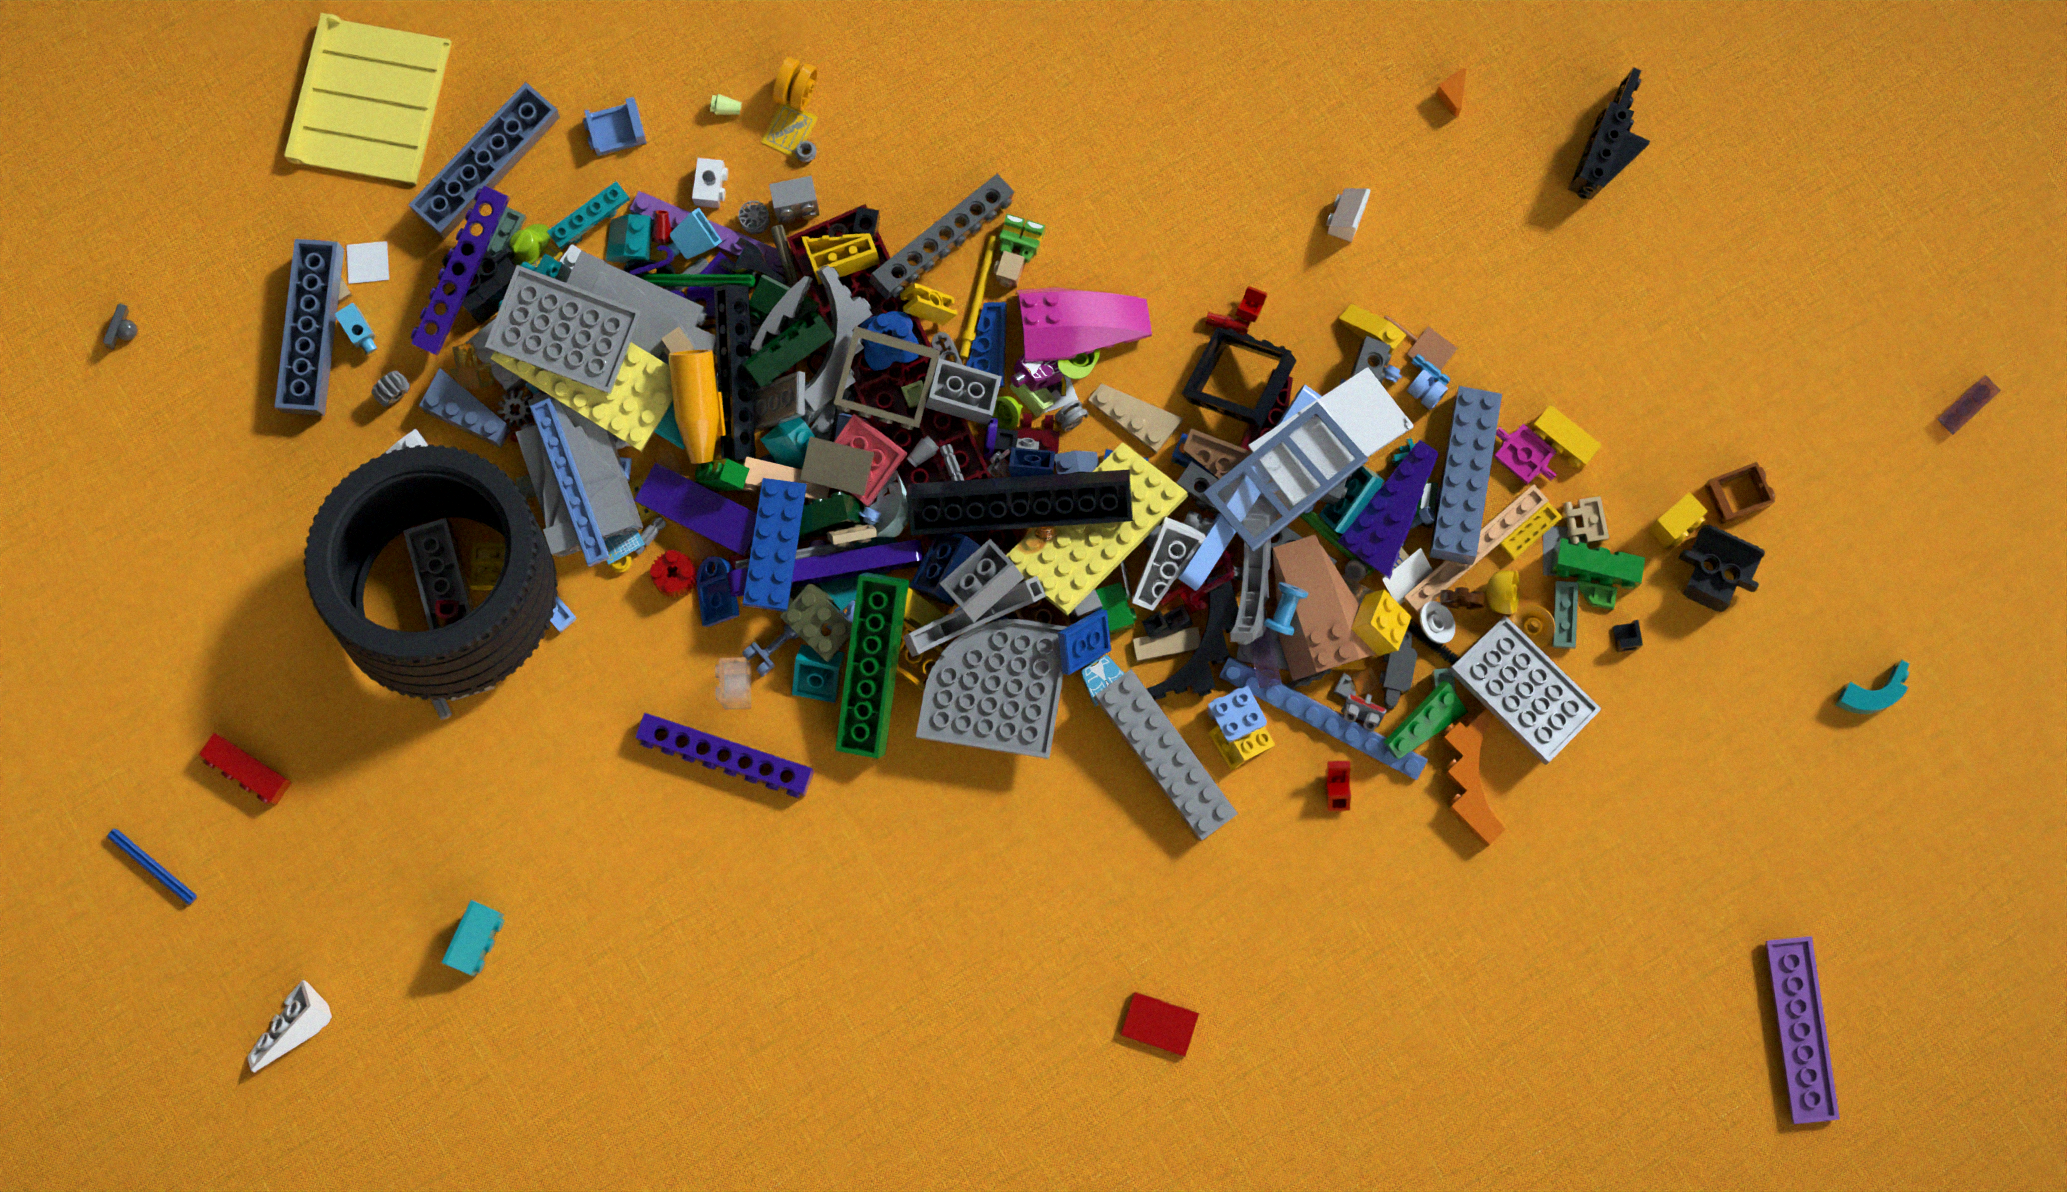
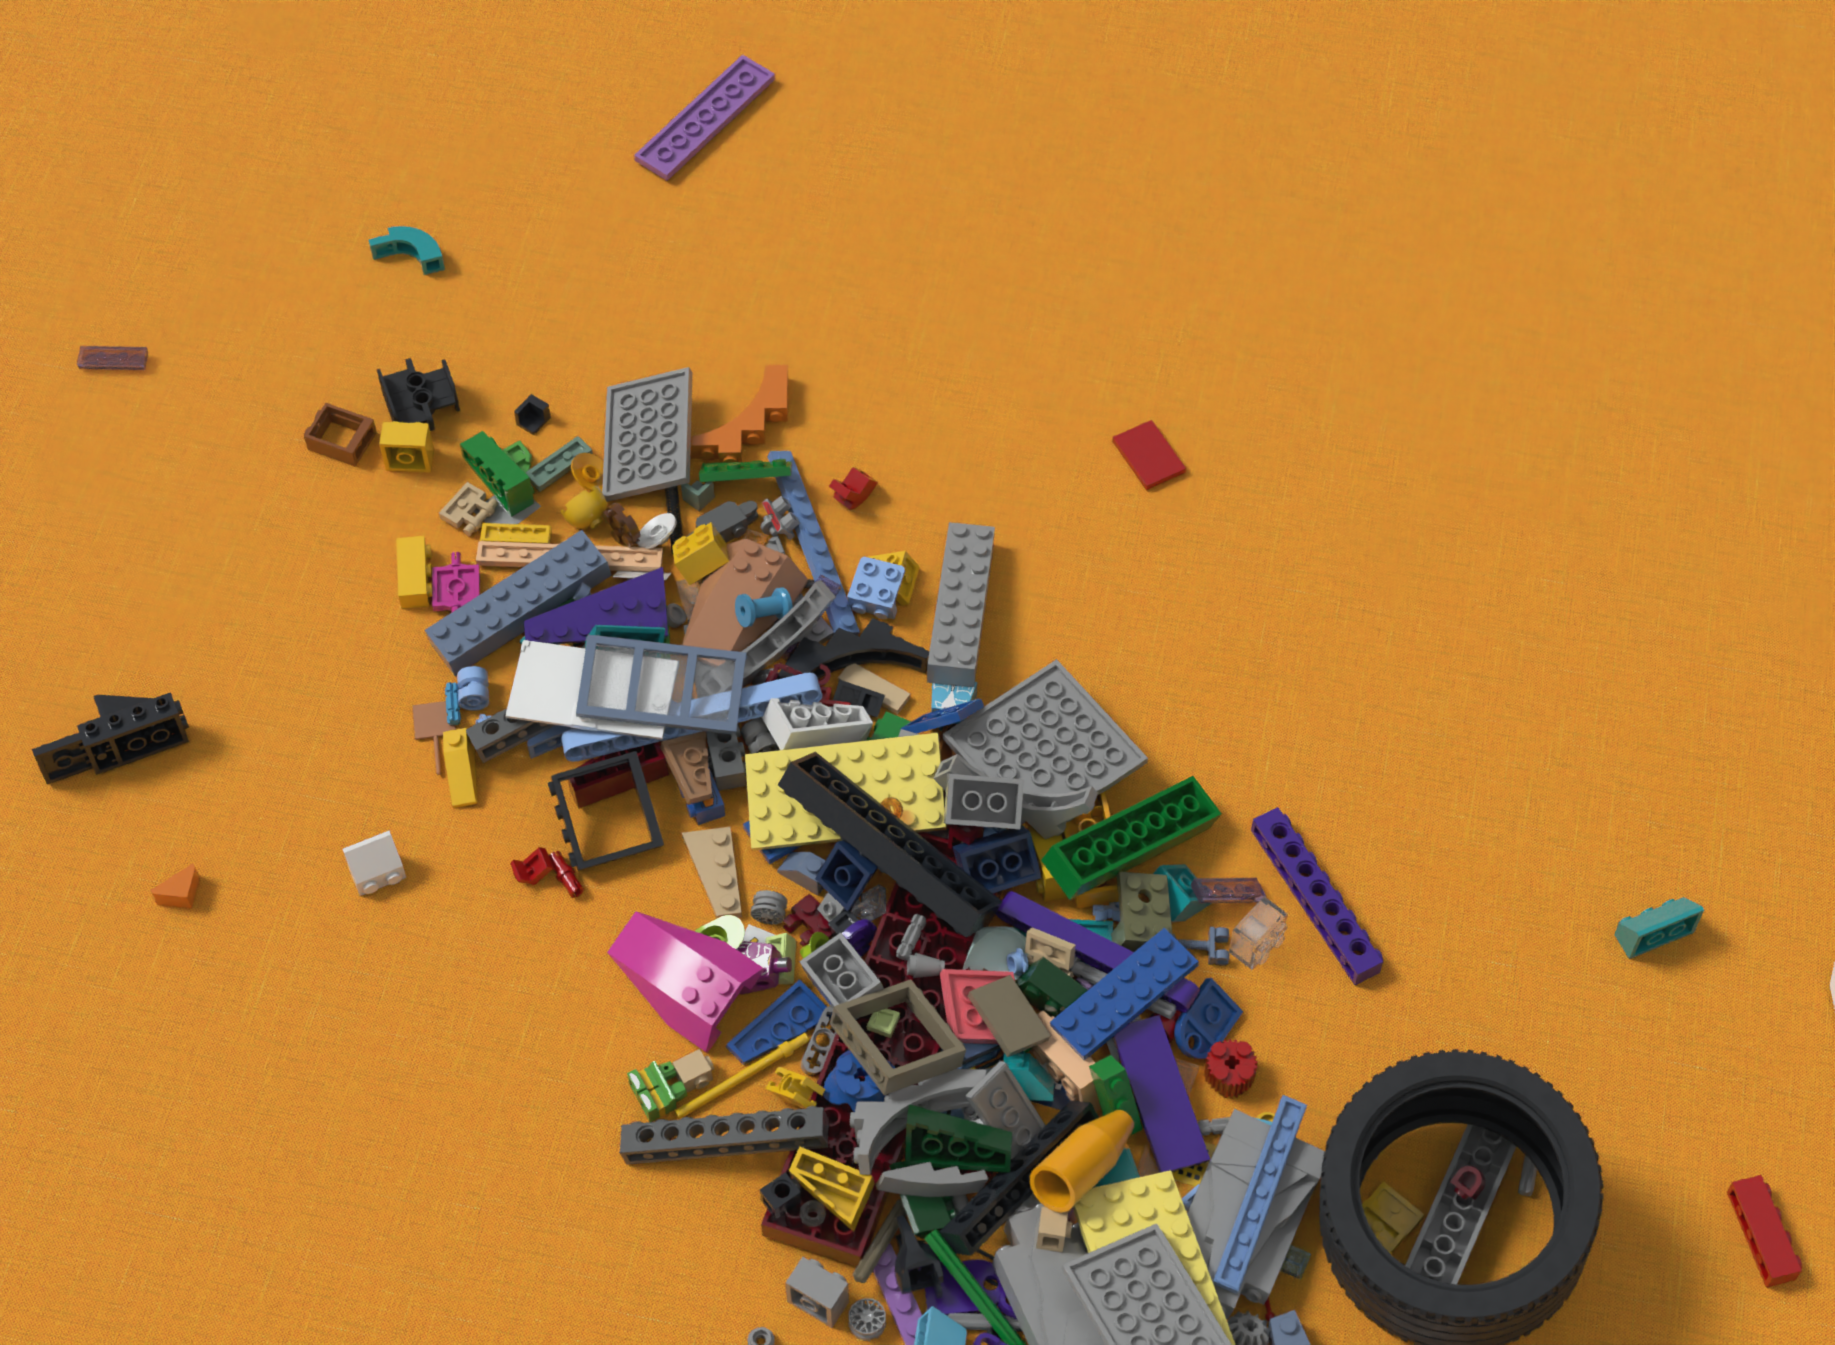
camera: 140 degrees left, 20 degrees down
(783, 699) = (1227, 890): none -> plate

